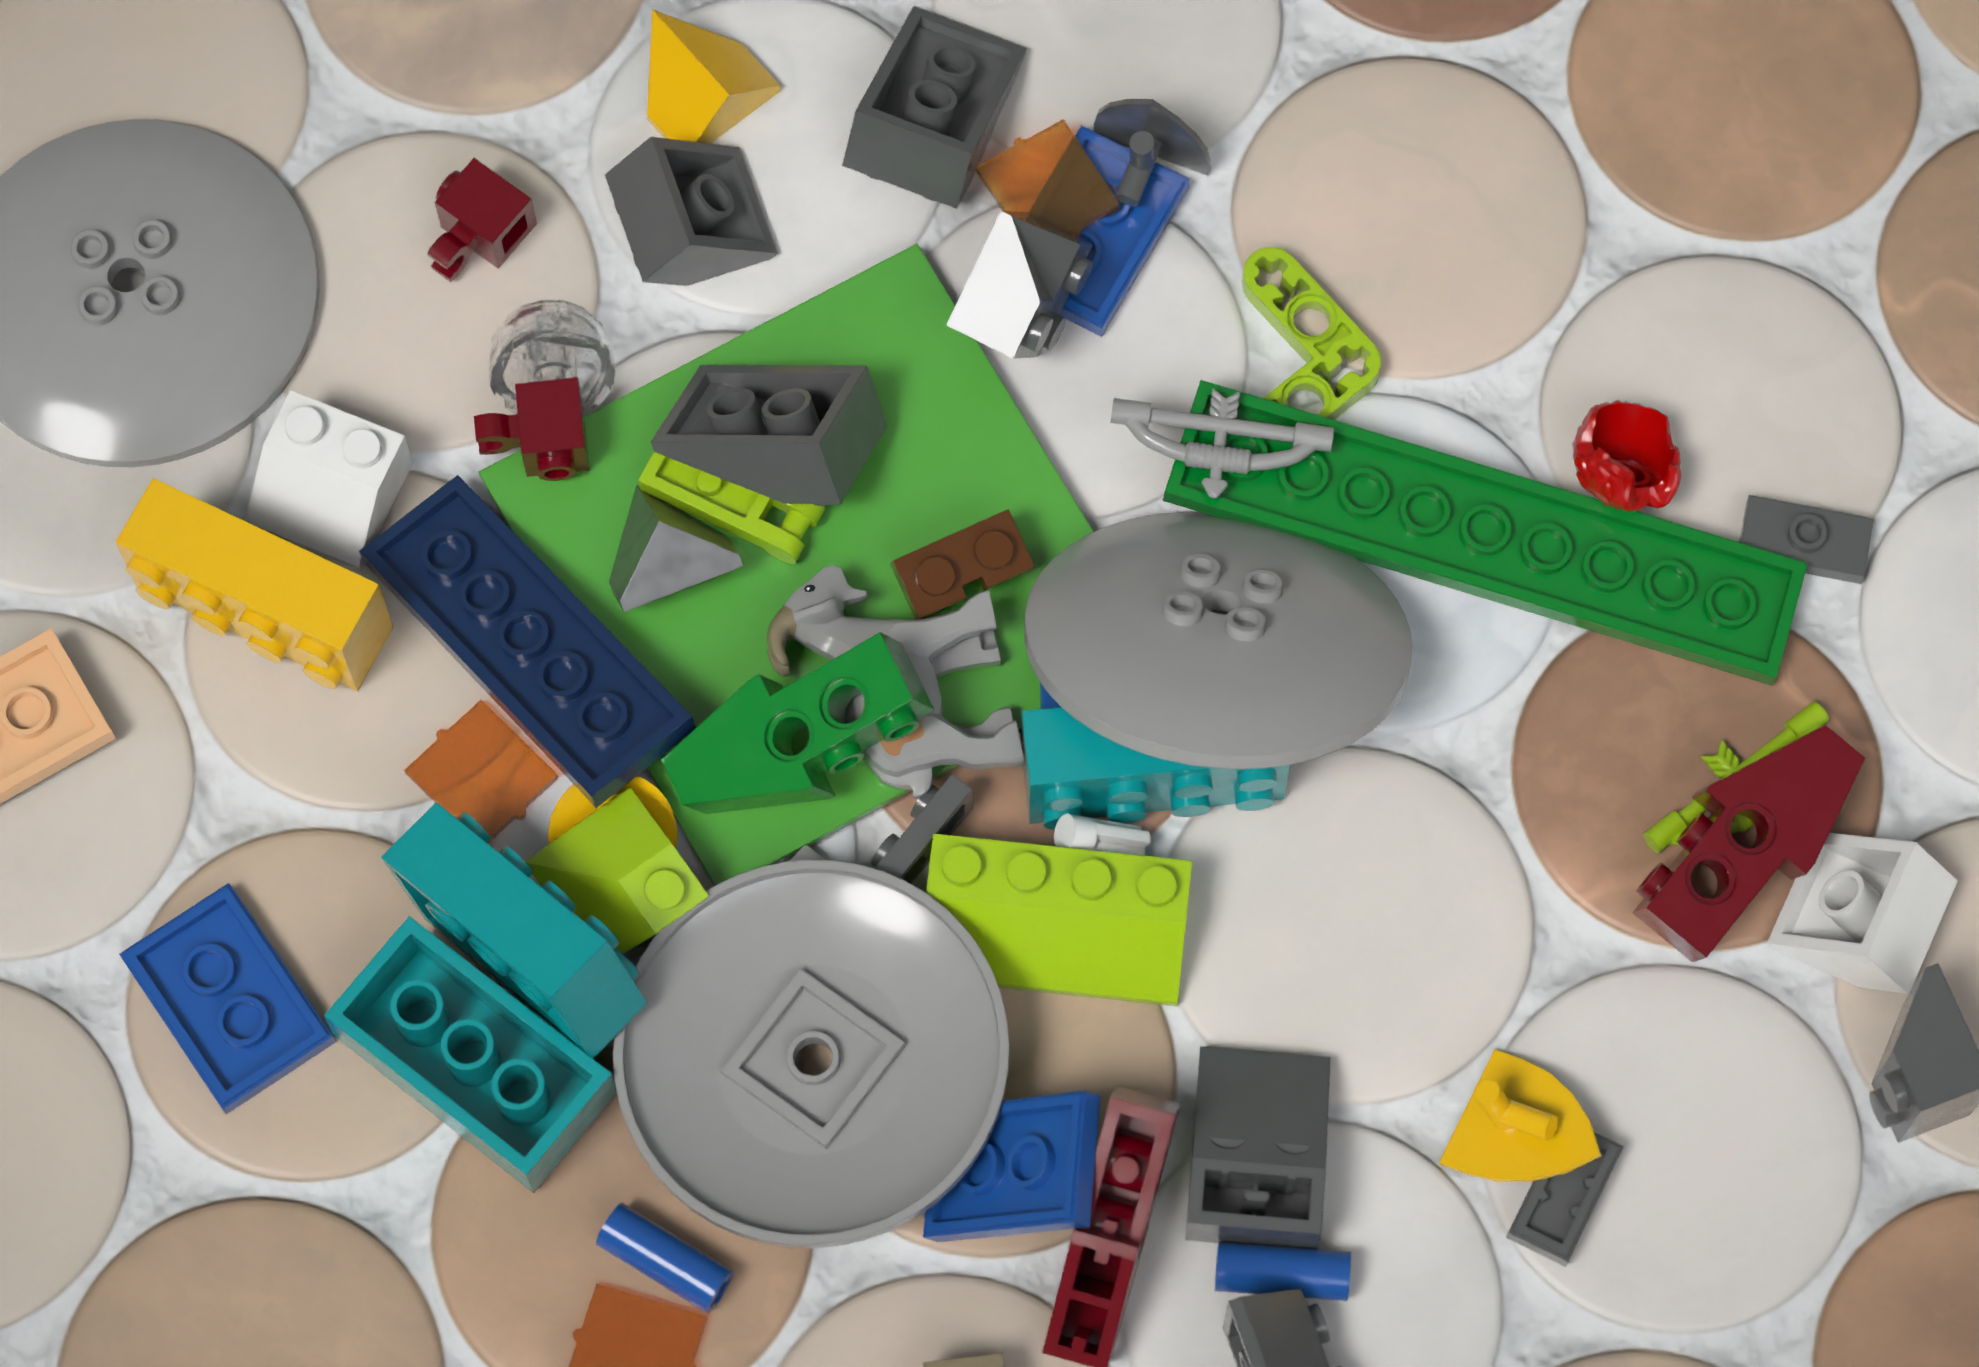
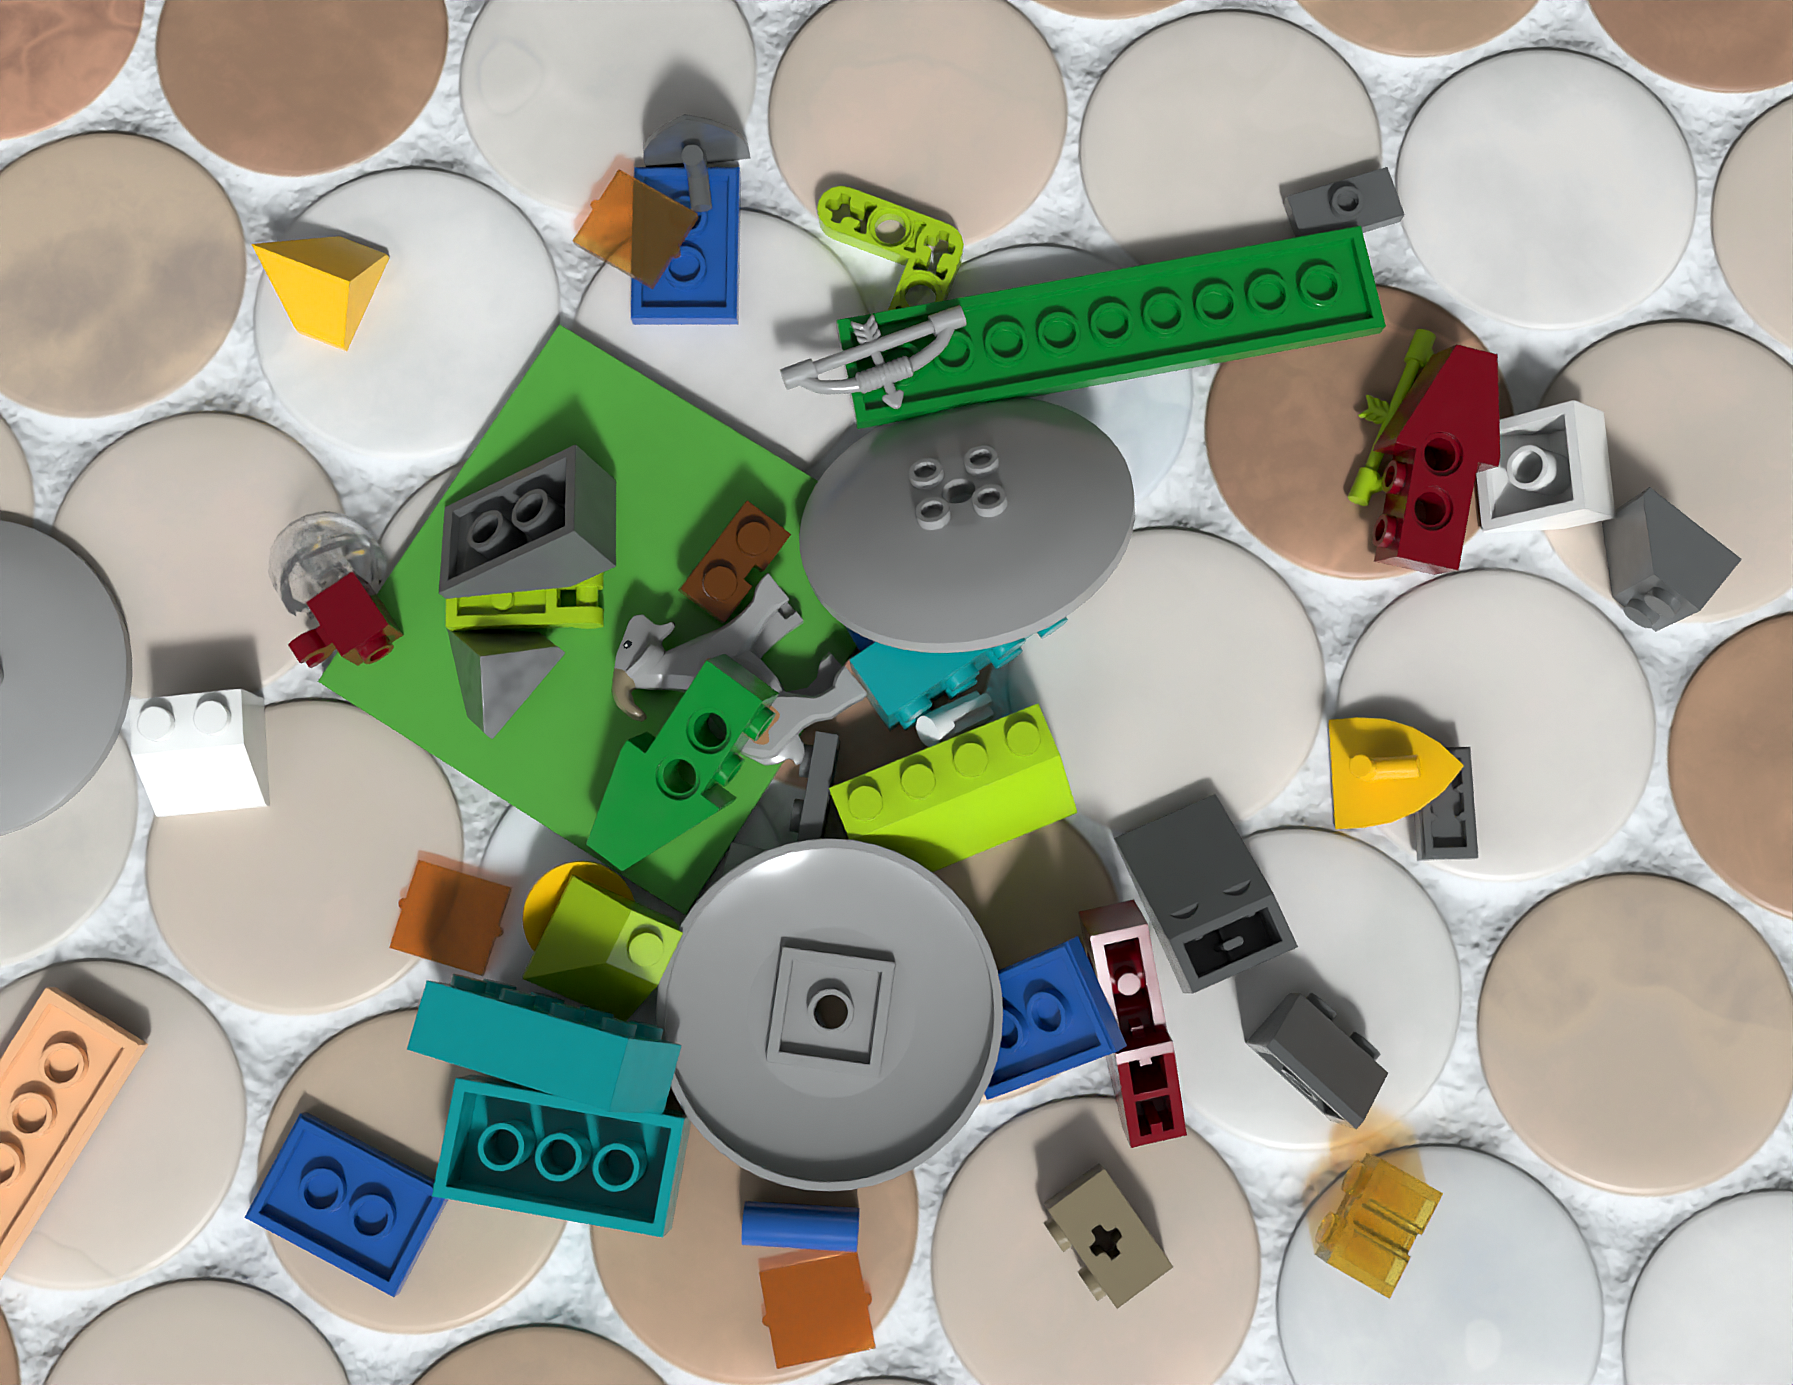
camera: 25 degrees left, 10 degrees up
(254, 586) = (184, 874): yellow brick -> none
(479, 216) = (208, 478): dark red brick -> none
(528, 641) = (430, 800): dark blue plate -> none
(689, 211) = (369, 389): dark grey slope -> none
(933, 107) = (513, 211): dark grey slope -> none
(1021, 285) = (660, 317): slope -> none
(1282, 1268) = (1271, 980): blue piece -> none
(1627, 456) = (1187, 213): red hair -> none

